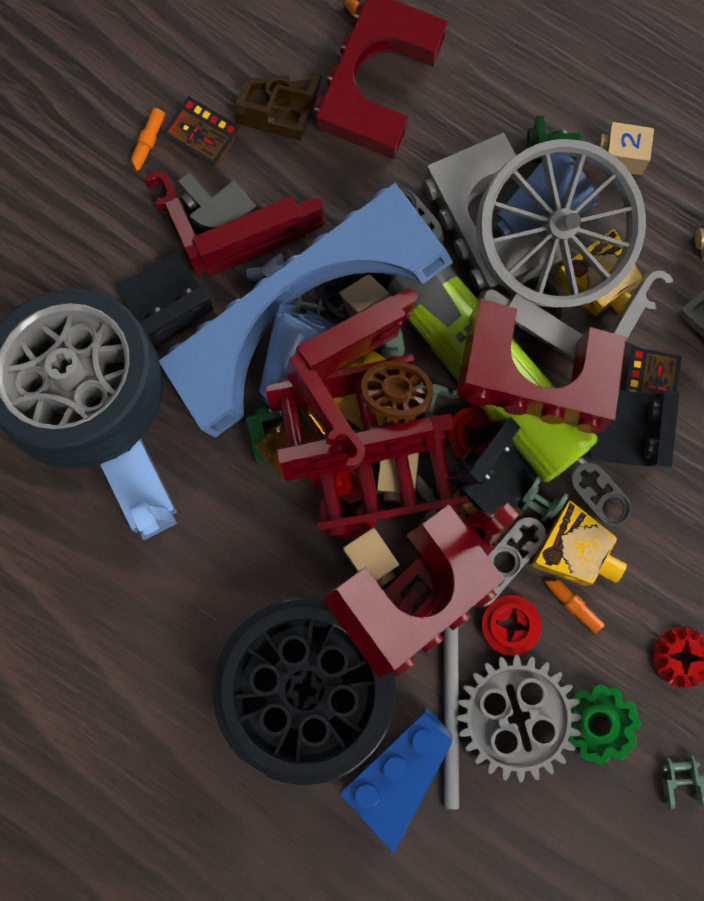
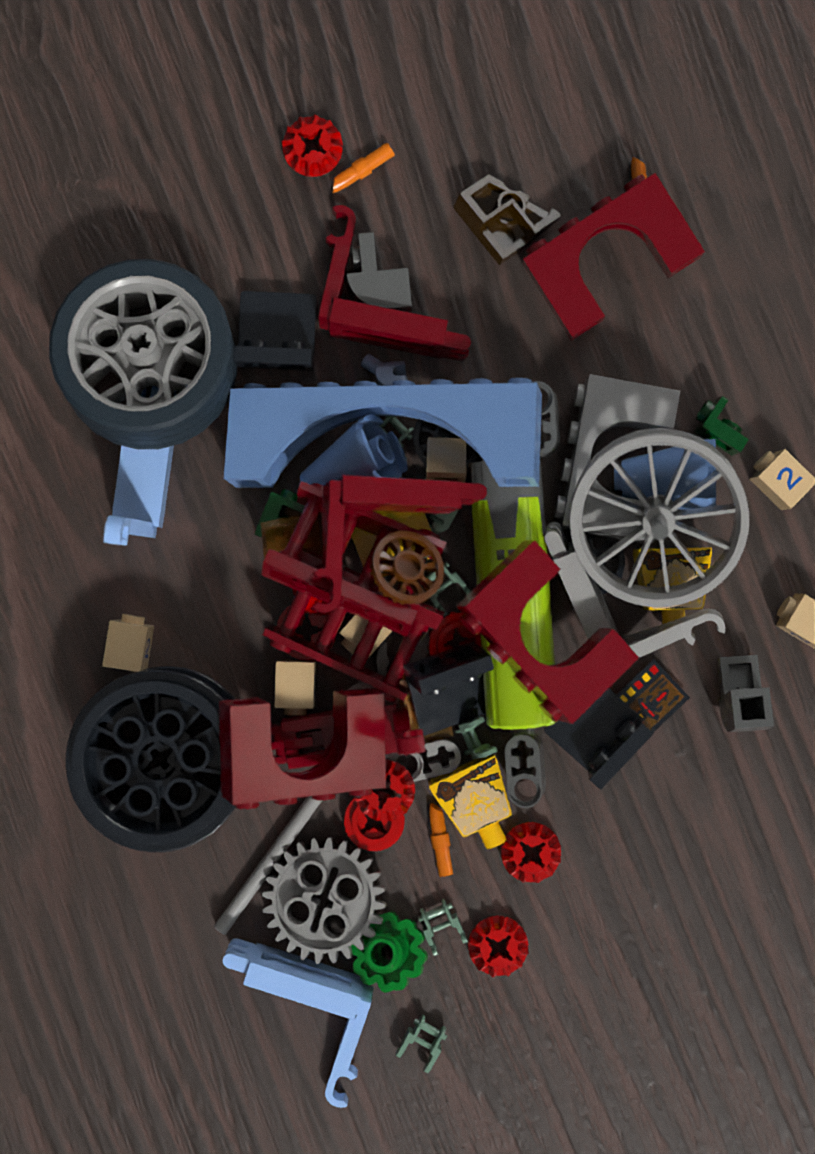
camera: 35 degrees right, 10 degrees up
(107, 158) = (315, 162): none -> red gear
(202, 131) = (415, 195): piece -> none
(212, 619) = (128, 643): none -> tan brick
(398, 776) = (192, 878): blue wedge -> none
(520, 598) = (394, 806): none -> red gear
(563, 796) = (311, 985): none -> light blue hinge
(632, 662) = (453, 921): none -> sand green piece
(640, 574) = (531, 834): none -> red gear

